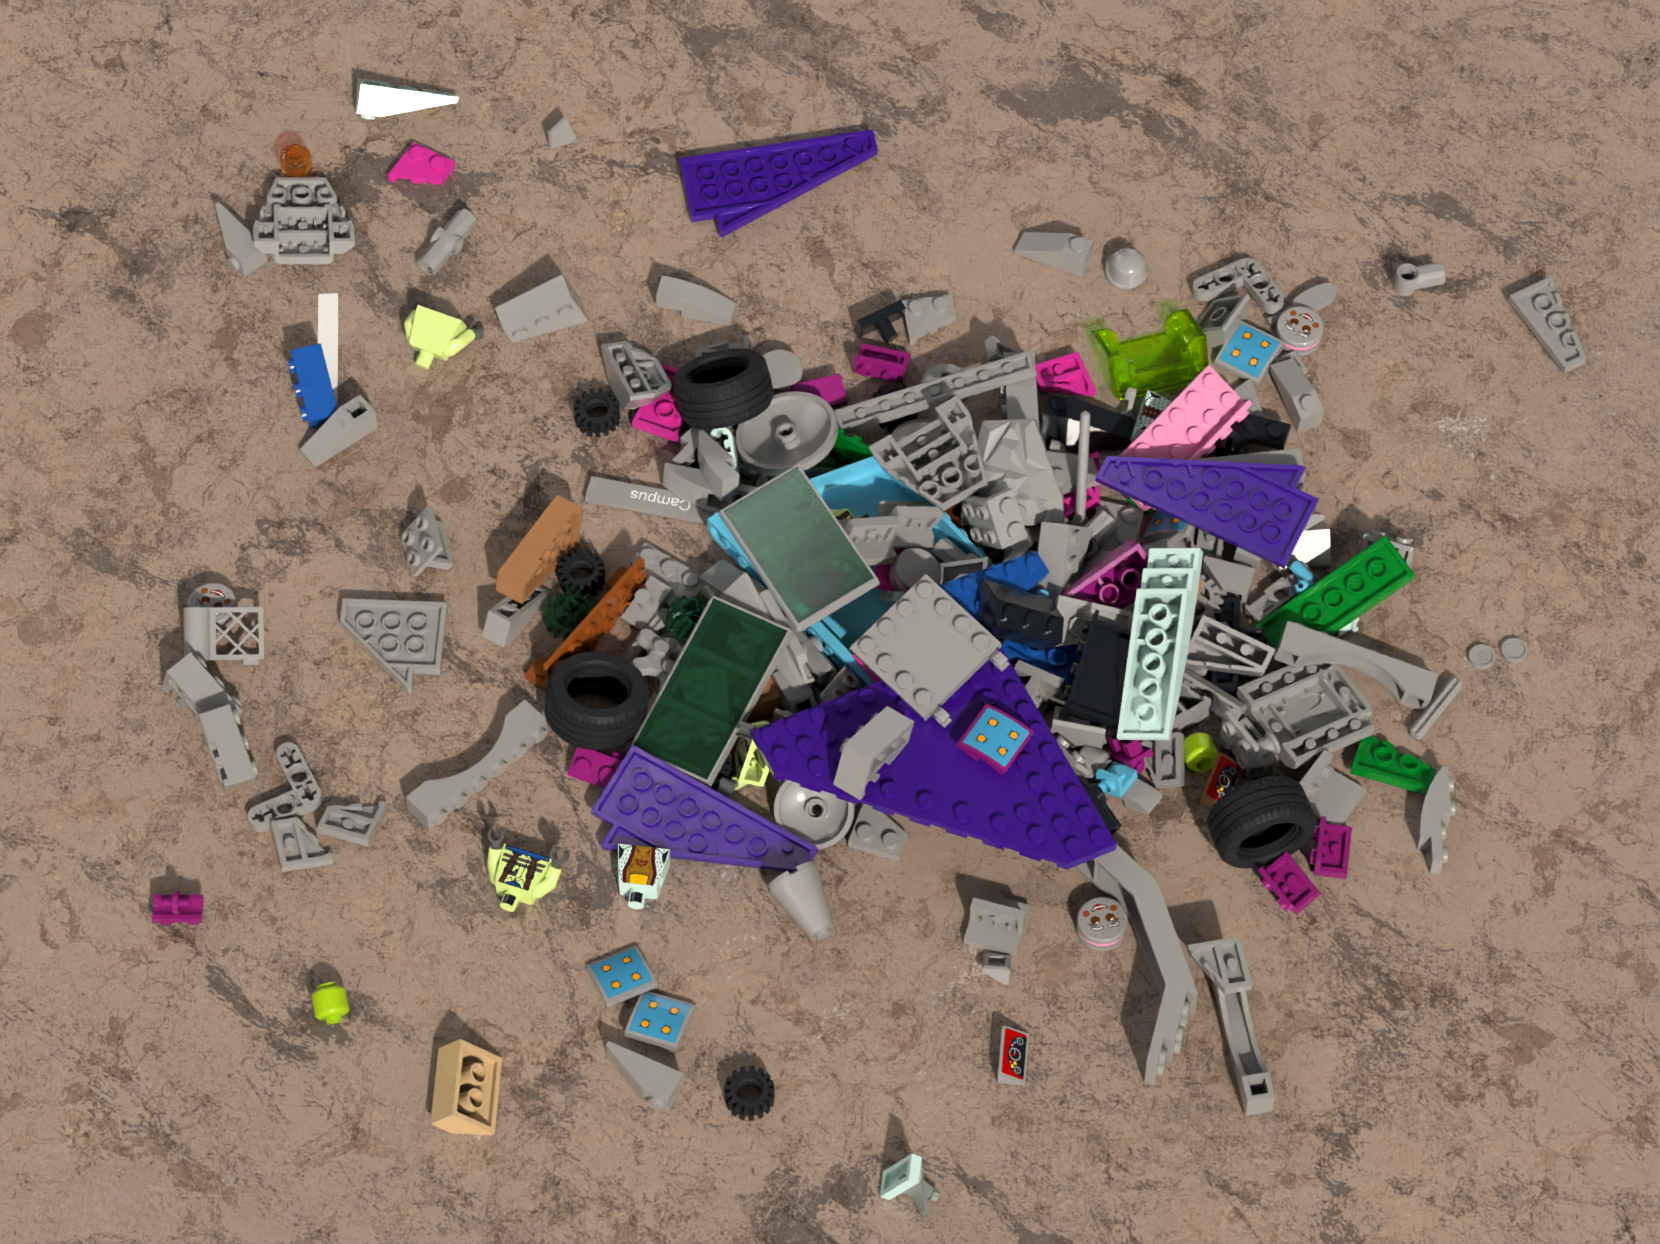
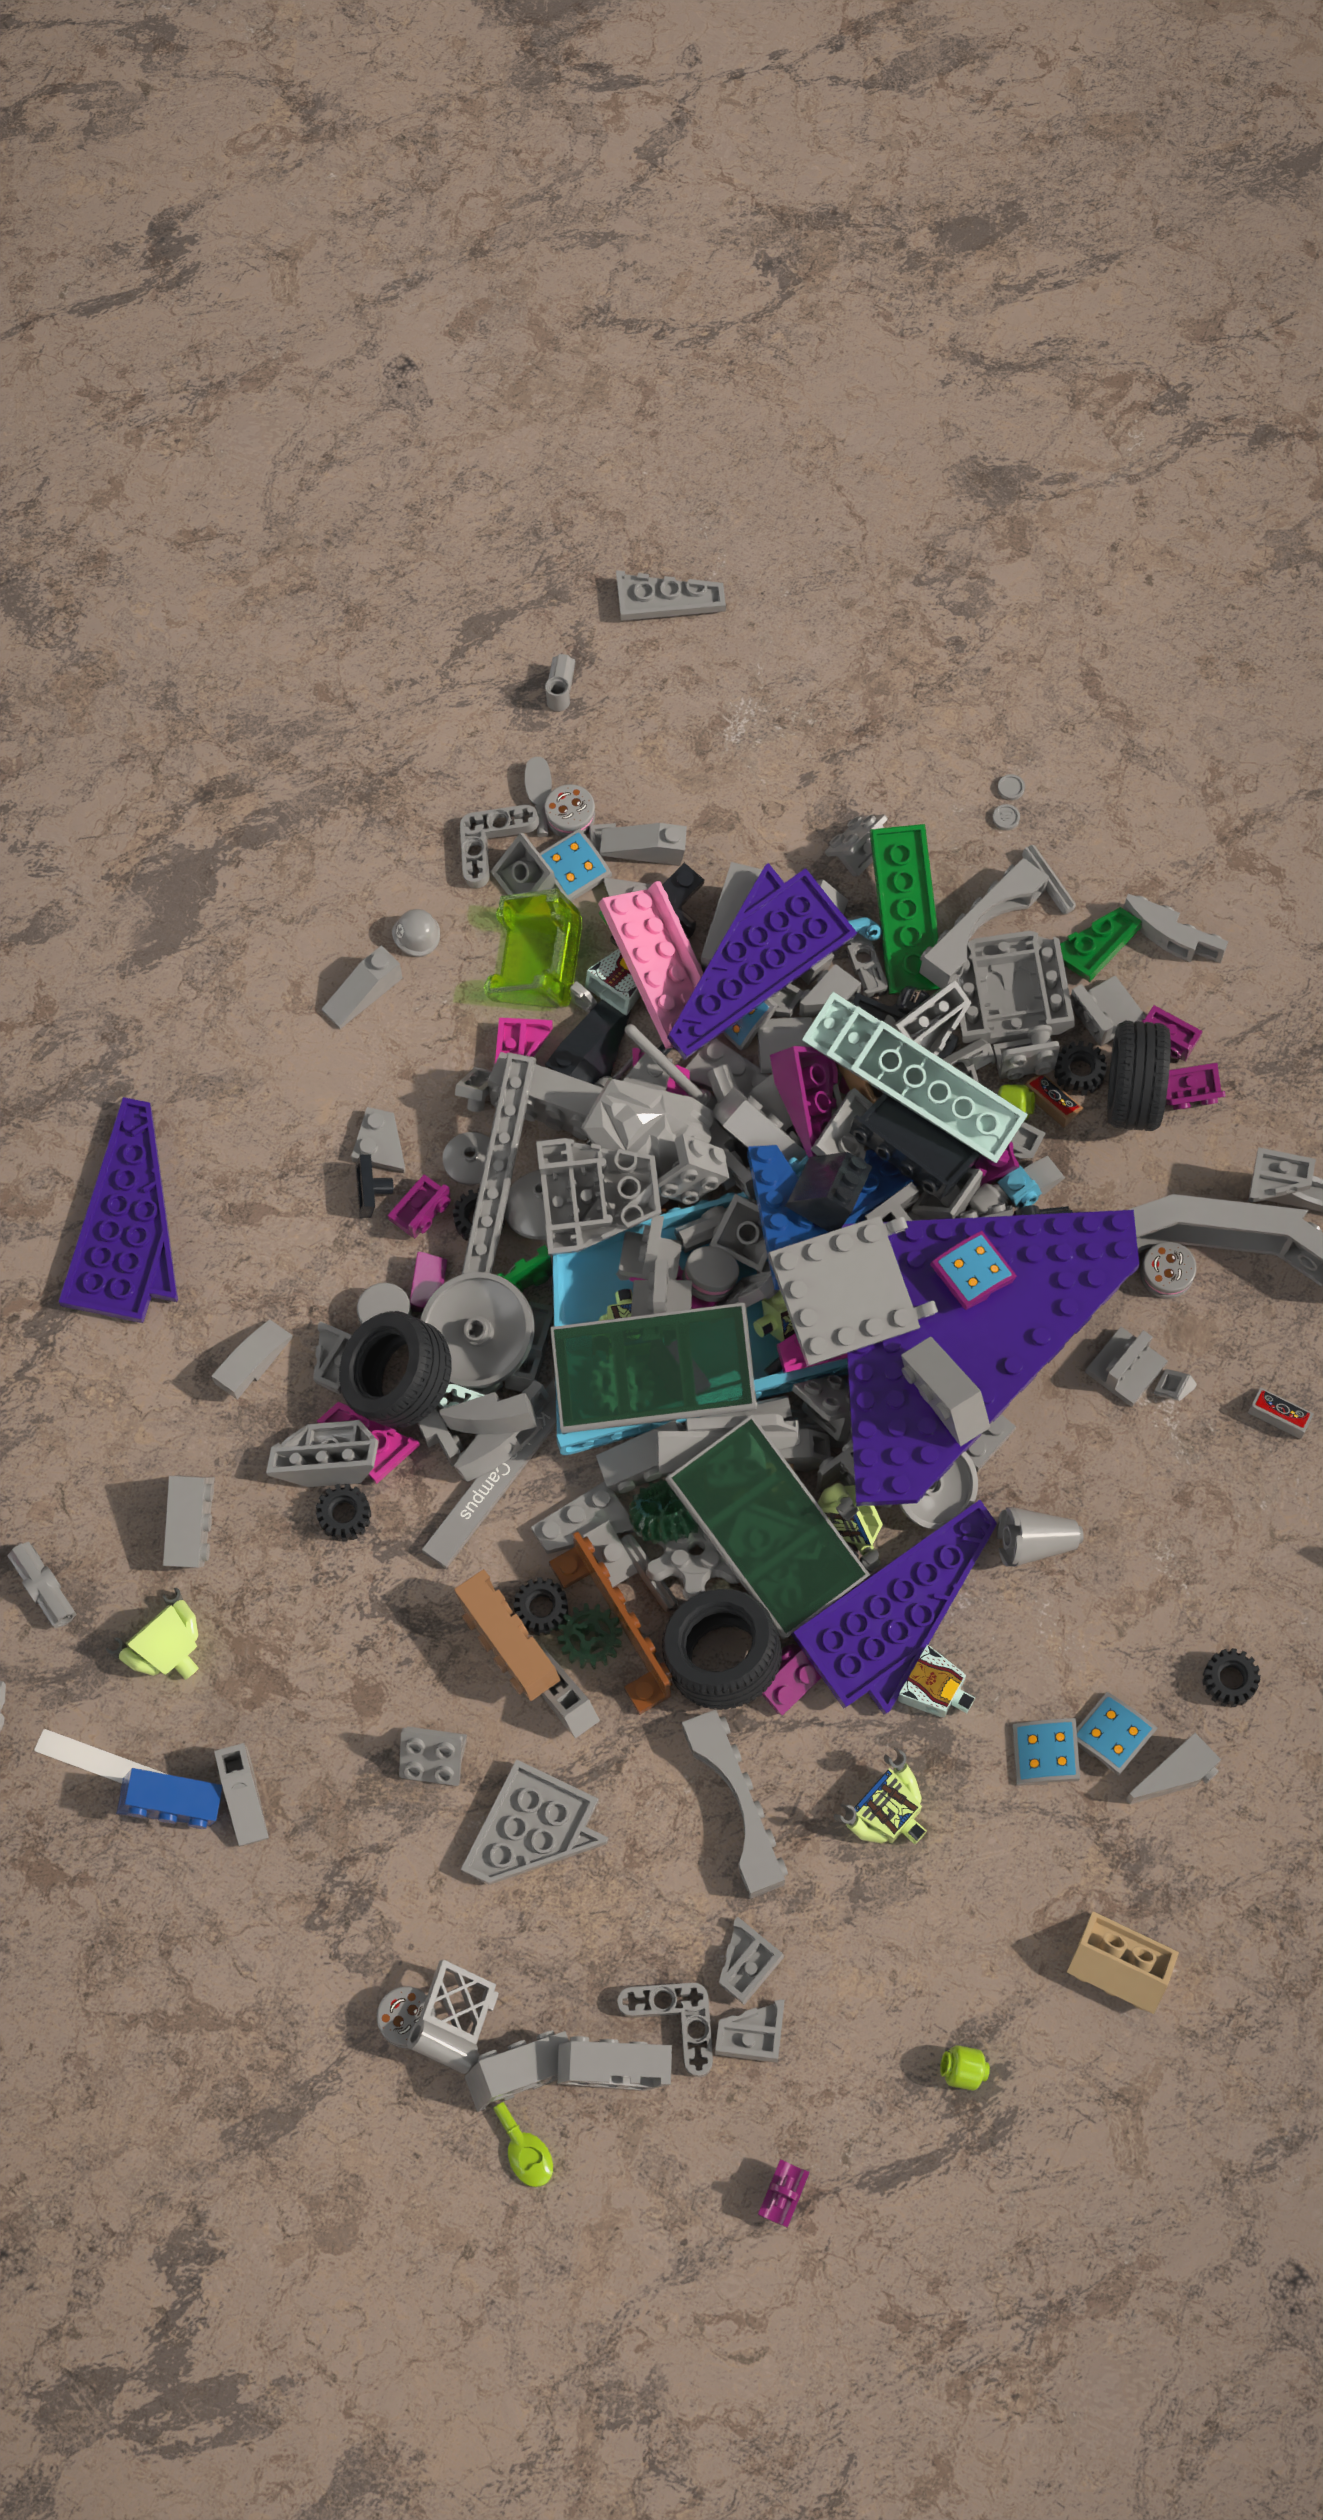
camera: 65 degrees left, 10 degrees up
(144, 729) = (526, 2152): none -> lime piece

